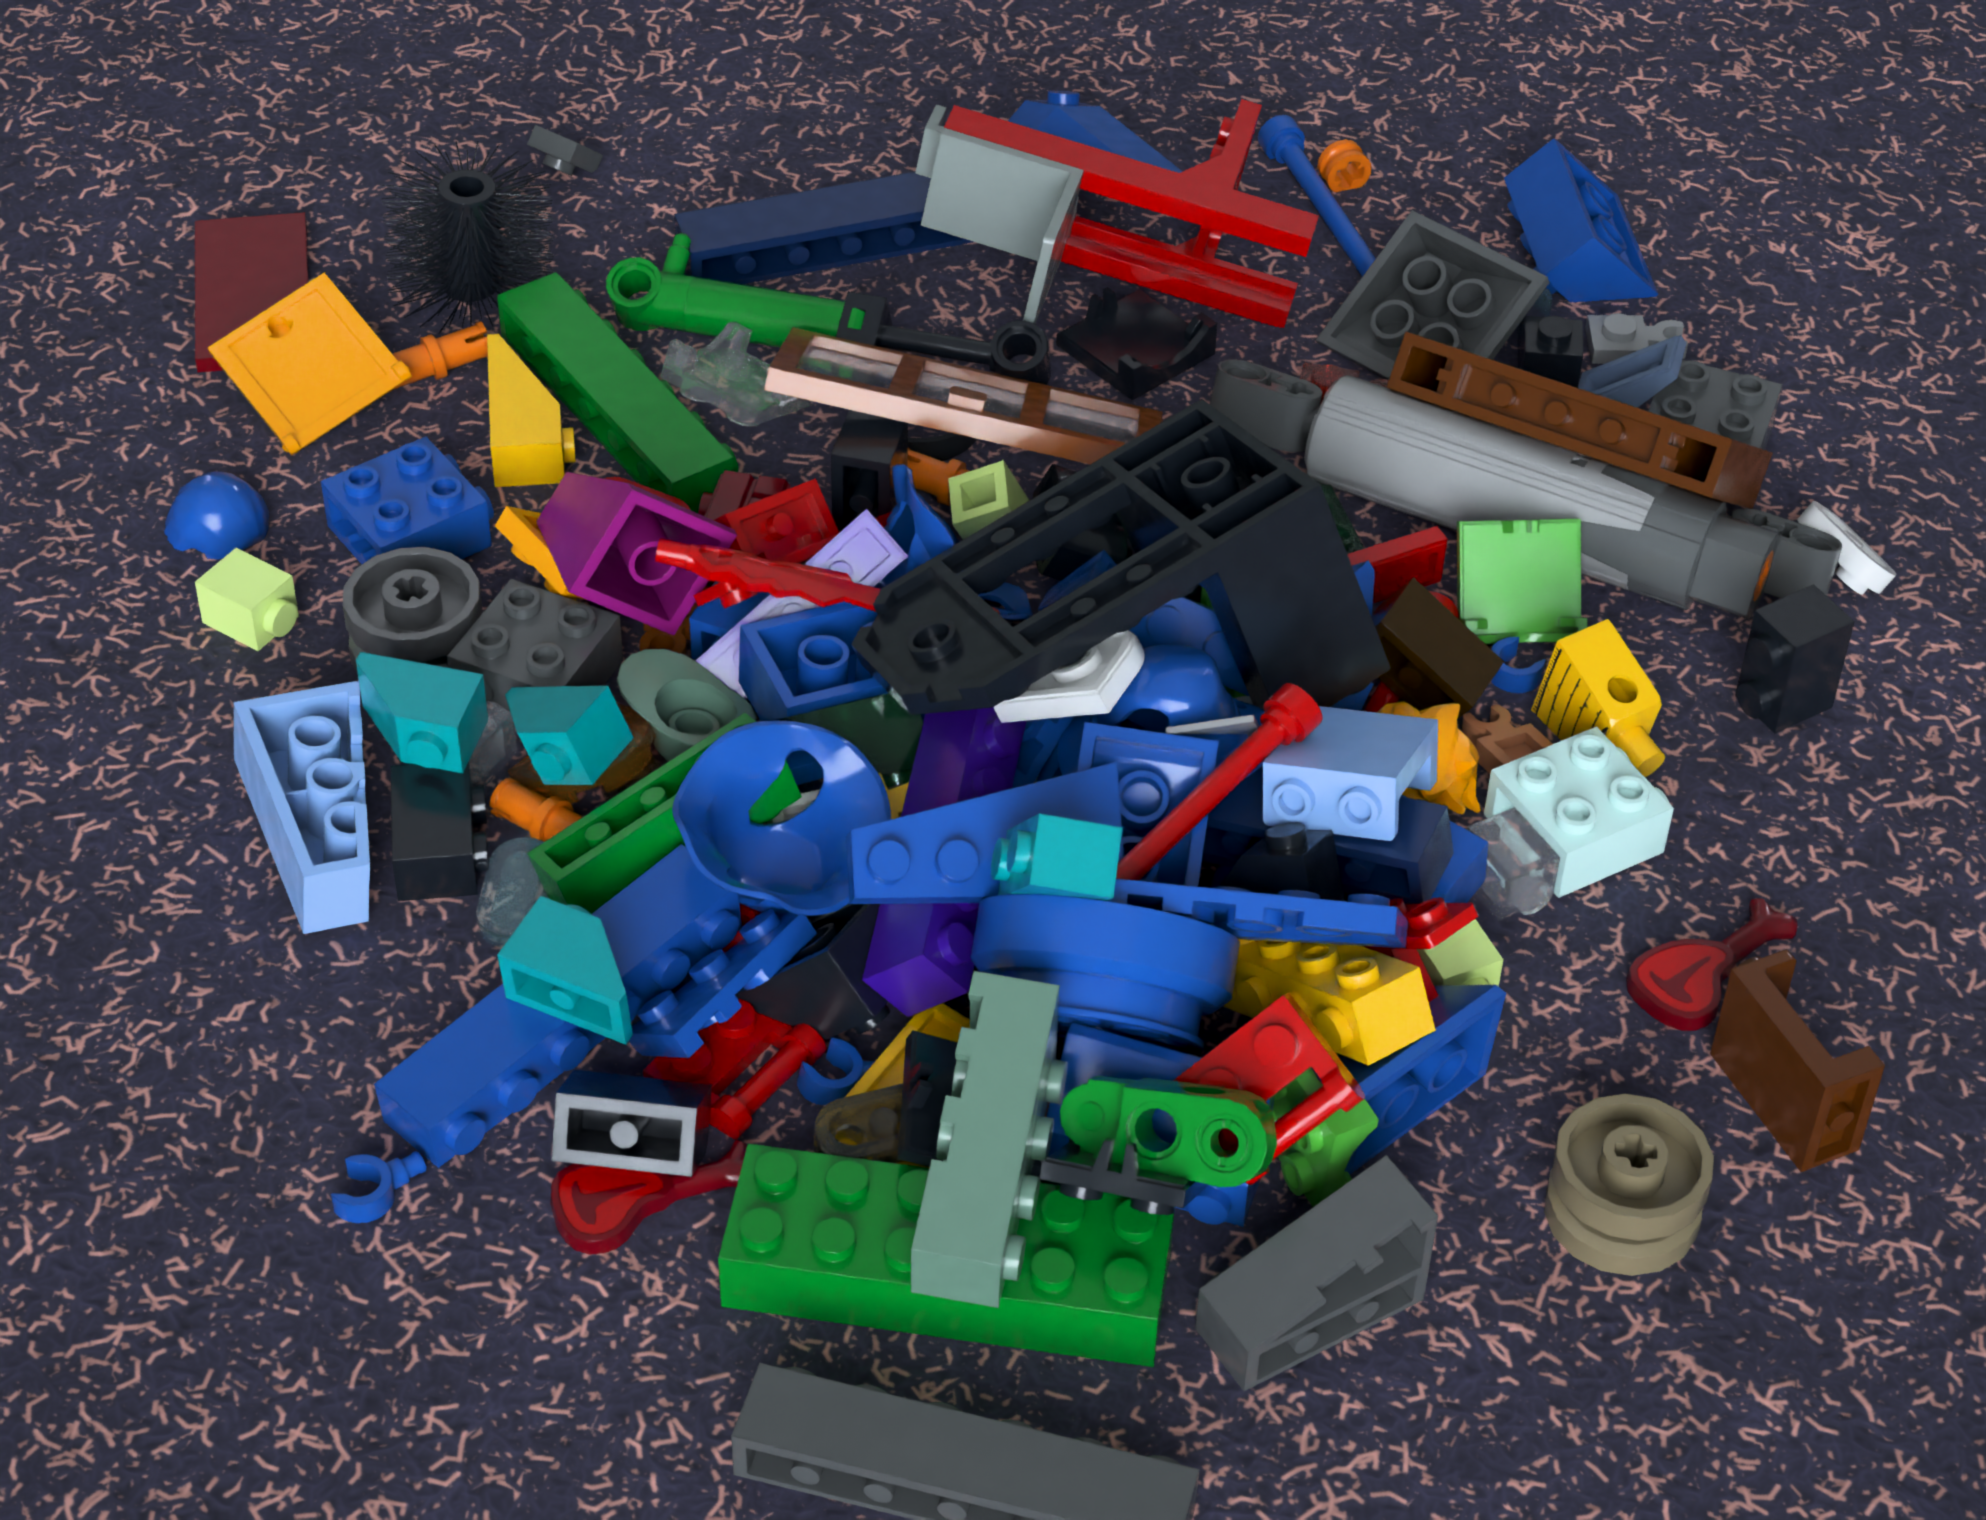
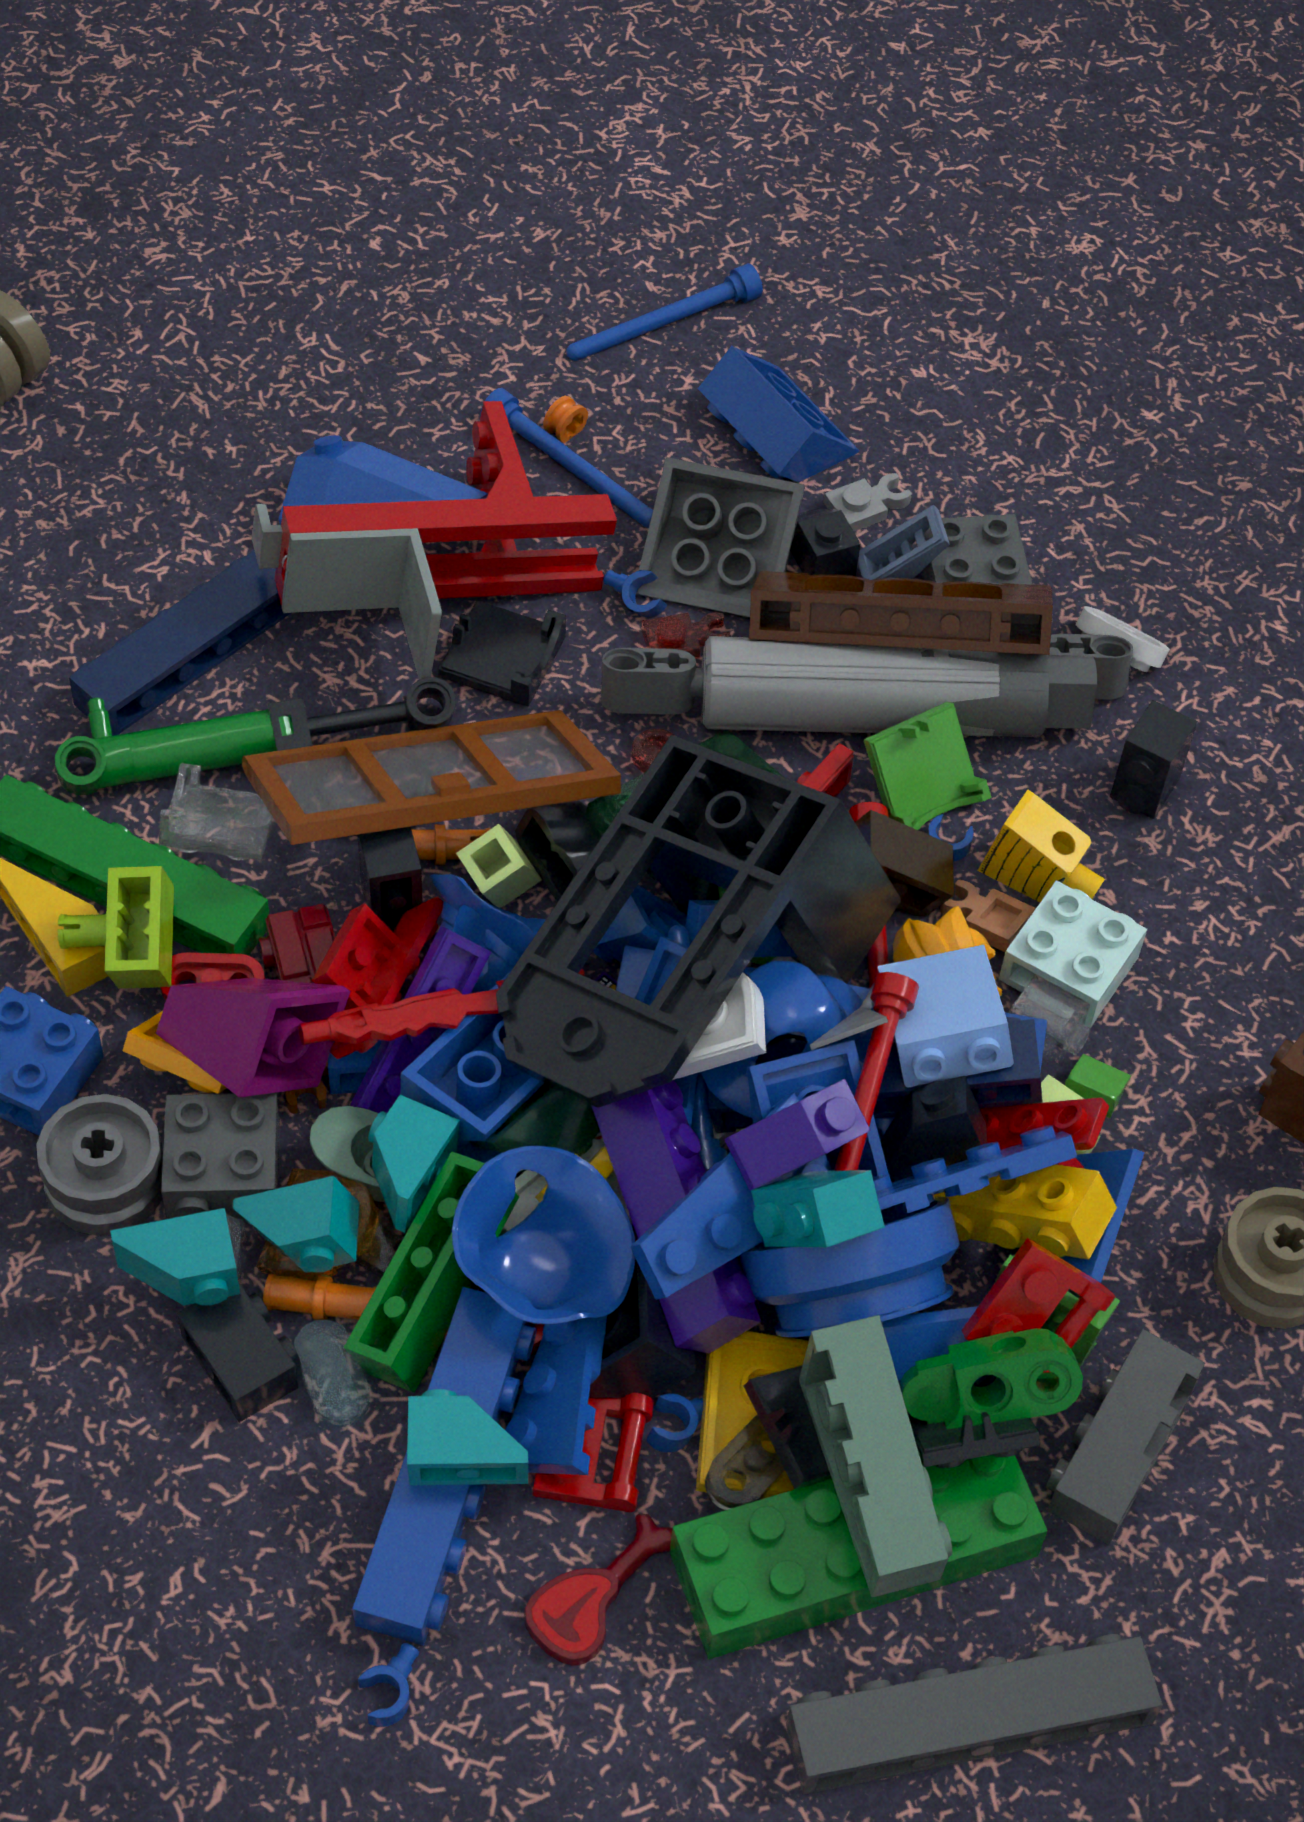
camera: 30 degrees left, 10 degrees up
(302, 777) = (117, 1361): light blue wedge -> none
(579, 421) = (133, 930): none -> lime brick
(631, 1123) = (564, 1543): black brick -> none
(704, 698) = (409, 1154): none -> teal slope
(1091, 784) = (797, 1134): none -> dark purple slope
(1311, 329) = (628, 587): none -> blue piece
(1529, 950) = (1096, 1080): none -> bright green slope
(1618, 109) = (741, 284): none -> blue piece
(1684, 977) = (1208, 1057): dark red piece -> none

